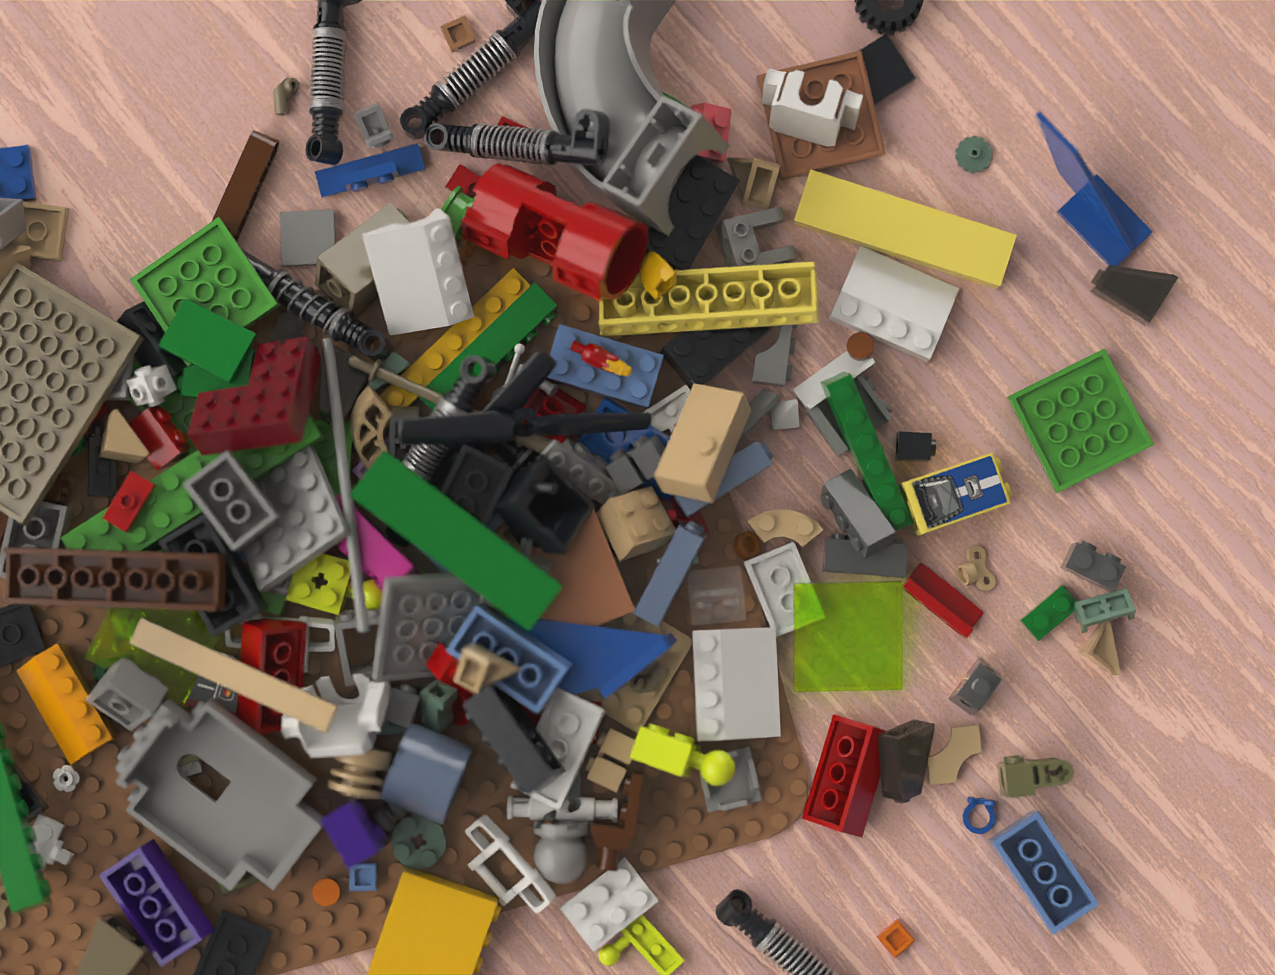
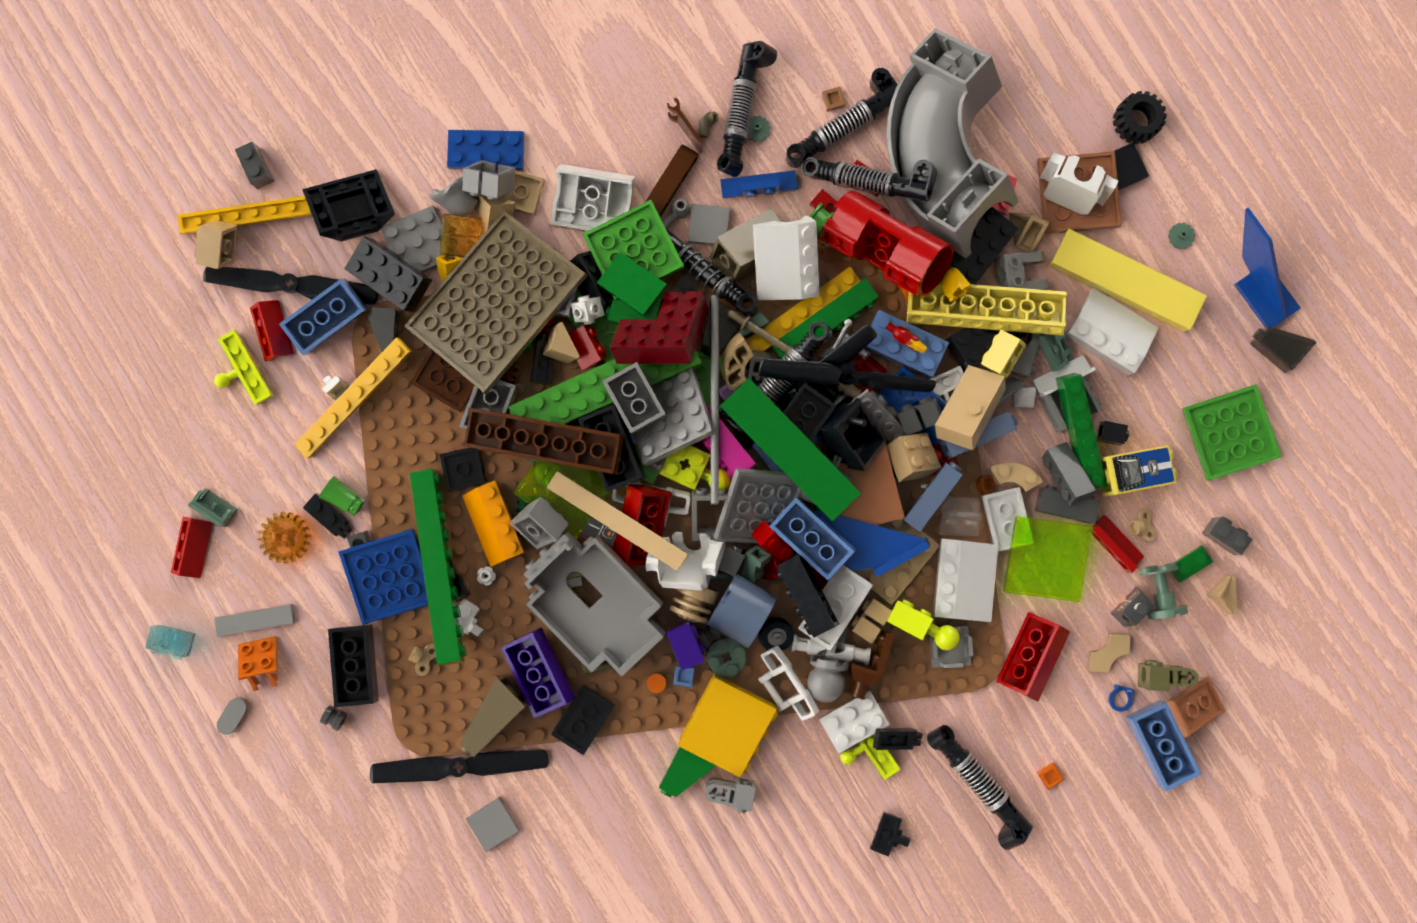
camera: 10 degrees right, 0 degrees up
(129, 501) = (560, 388): red plate -> none
(134, 223) = (590, 197): none -> white piece
(239, 86) = (685, 125): none -> reddish brown flag
(260, 227) = (677, 212): none -> light grey bar
(358, 91) = (758, 128): none -> sand green piece
(373, 126) = (766, 153): light grey bracket -> none
(481, 668) = (793, 543): tan slope -> none
(482, 797) = (776, 633): none -> black wheel
(649, 682) = (906, 570): dark tan arm -> none
(672, 919) = (896, 739): none -> black hinge
(739, 361) = (1003, 353): none -> light yellow brick
(814, 343) = (1056, 350): none -> sand green plate
(860, 346) = (1085, 357): dark orange tile -> none
(904, 759) = (1076, 651): clear smoke slope -> none
(1017, 667) = (1164, 599): none -> sand green piece
(1082, 810) = (1196, 706): none -> nougat tile
(1104, 608) = (1231, 566): sand green hinge -> none

